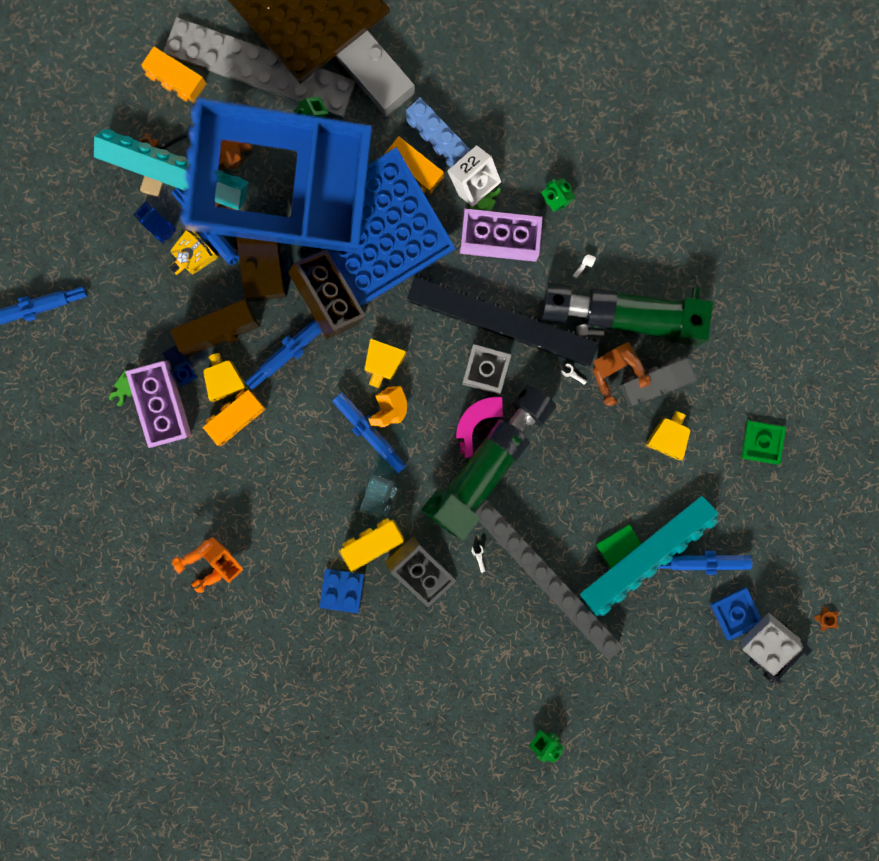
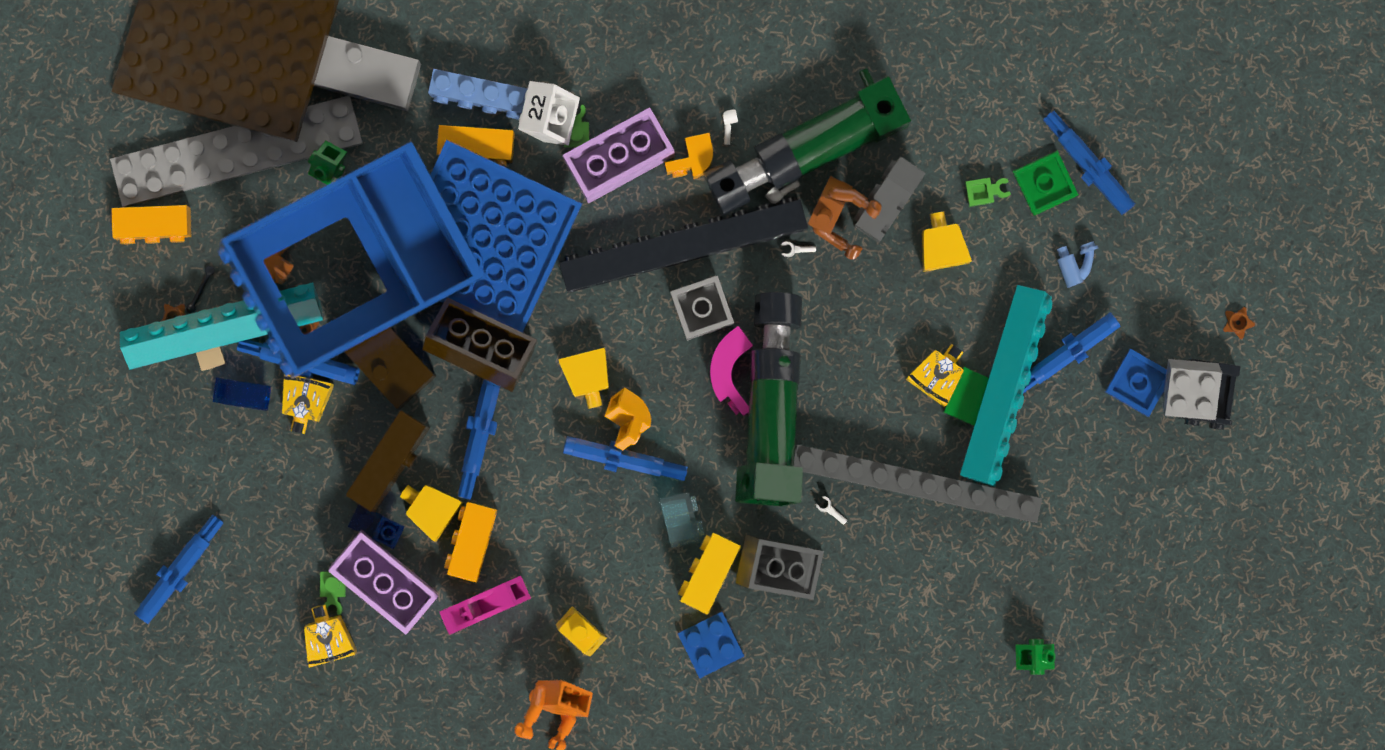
camera: 30 degrees left, 0 degrees up
(98, 415) = (327, 638): none -> yellow torso
(212, 464) = (485, 605): none -> dark pink arch
(262, 524) = (580, 632): none -> yellow torso
(548, 274) = (699, 157): none -> light orange brick
(558, 194) = (649, 70): green brick -> none
(609, 518) = (938, 375): none -> yellow torso
(720, 419) = (982, 192): none -> bright green plate
(742, 507) = (1068, 265): none -> medium blue plant
(802, 456) = (1095, 170): none -> blue piece

